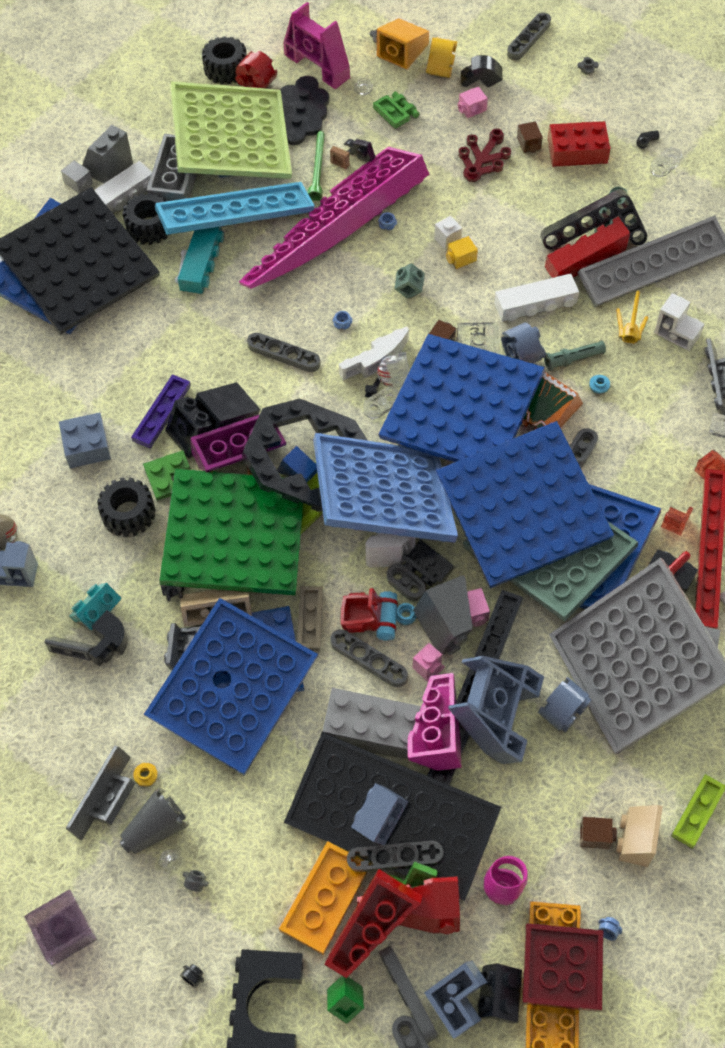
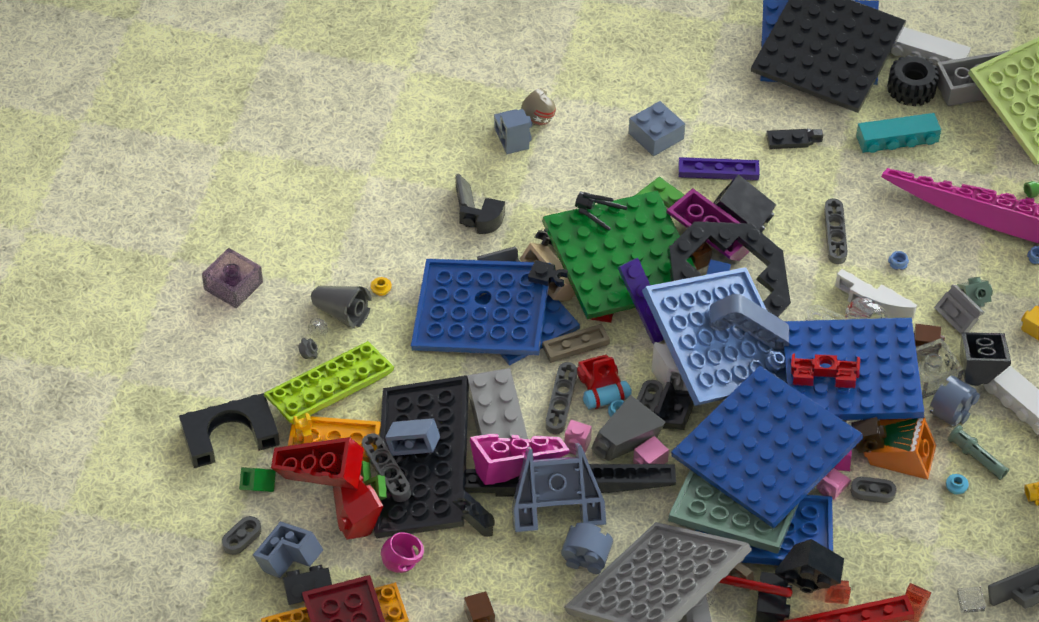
camera: 65 degrees right, 10 degrees down
(77, 177) = (926, 16): light grey brick -> none
(99, 599) = (514, 197): teal bracket -> none
(104, 796) = (350, 264): dark grey bracket -> none
(108, 155) = (960, 22): dark grey slope -> none
(132, 520) = (609, 167): black tyre -> none
(156, 338) = (793, 138): none -> black hinge
(168, 532) = (587, 201): none -> black plant
(186, 422) = (715, 182): black plate -> none
(192, 975) = (233, 375): black plate -> none
(233, 608) = (544, 273): none -> black plate
(234, 207) = (964, 133): medium azure plate -> none
(253, 876) = (329, 382): none -> lime plate
(302, 534) = (635, 282): none -> dark purple plate
(317, 923) = (303, 429): none -> yellow plate
(372, 389) = (836, 307): black hand -> none
(383, 456) = (751, 318): none -> sand blue beam
(408, 993) = (289, 509): dark grey beam -> none
(422, 300) = (959, 309): none -> light grey plate
(422, 458) = (775, 361): none -> medium blue plate
(468, 405) = (844, 371): none -> red piece
(488, 790) = (474, 513): none -> black hinge
(491, 301) = (983, 356): none -> black slope
(537, 418) = (872, 433): none -> dark brown brick
(670, 525) = (811, 567): none -> black slope

